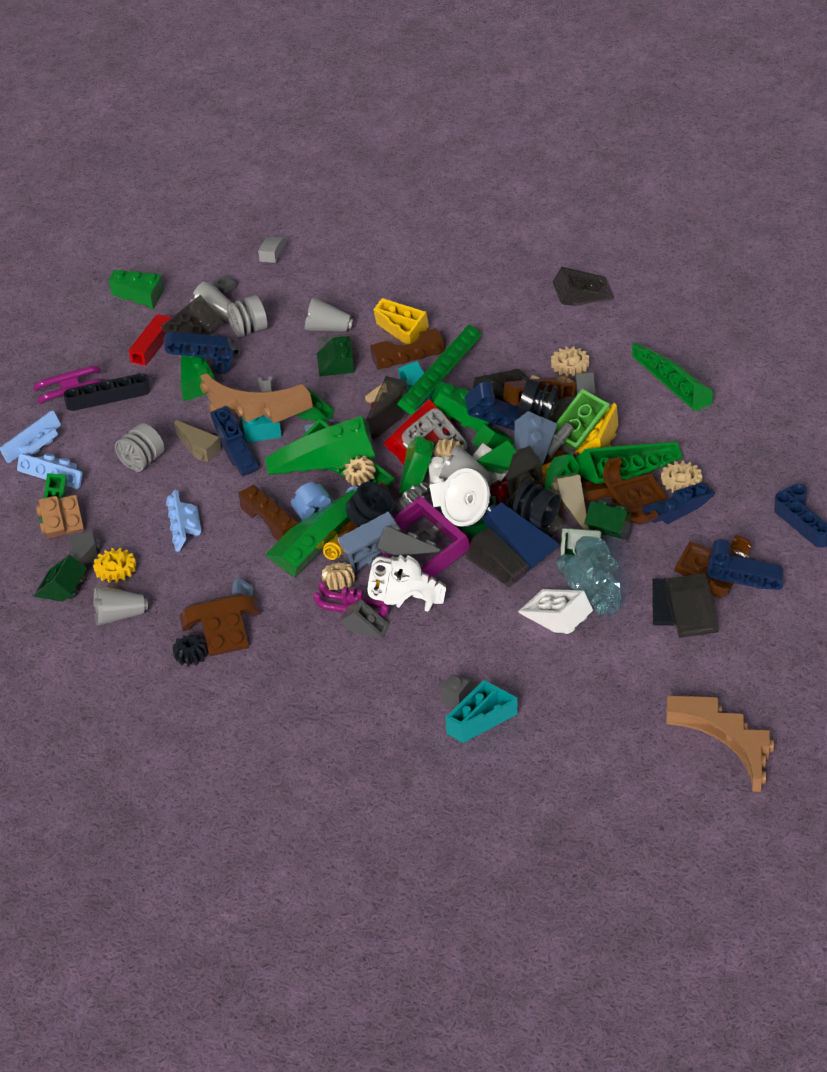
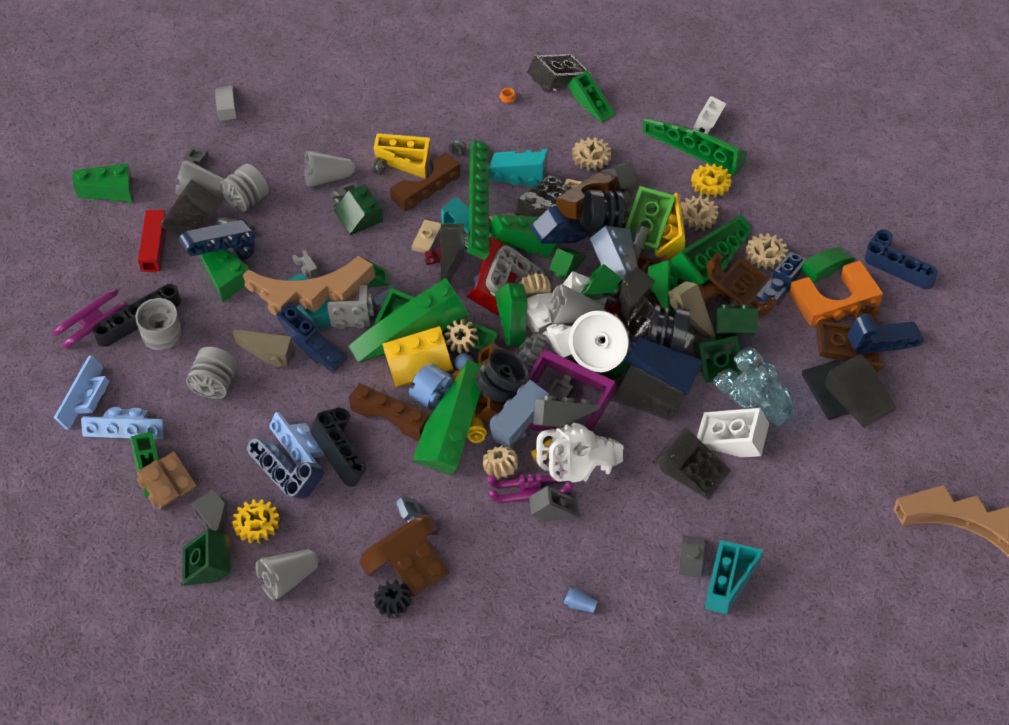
camera: 25 degrees left, 10 degrees up
(118, 401) = (159, 324): none -> light grey wheel
(159, 540) = (292, 481): none -> dark blue beam
(208, 516) = (329, 435): none -> black beam
(280, 431) = (352, 313): none -> light grey bracket
(318, 470) = (413, 352): none -> yellow slope
(339, 693) = (579, 600): none -> medium blue cone
(374, 323) = (378, 165): none -> dark grey bush
(452, 328) = (457, 146): none -> dark grey bush
(495, 355) = (519, 168): none -> teal wedge
(503, 622) = (691, 464): none -> clear smoke slope
(524, 297) = (507, 95): none -> orange plate
(598, 314) = (590, 96): none -> green slope
(637, 431) = (707, 213): none -> tan gear
(667, 408) = (711, 180): none -> yellow gear
(699, 353) = (709, 114): none -> white hinge
(702, 534) = (817, 307): none -> orange arch
(731, 500) = (825, 263): none -> green slope

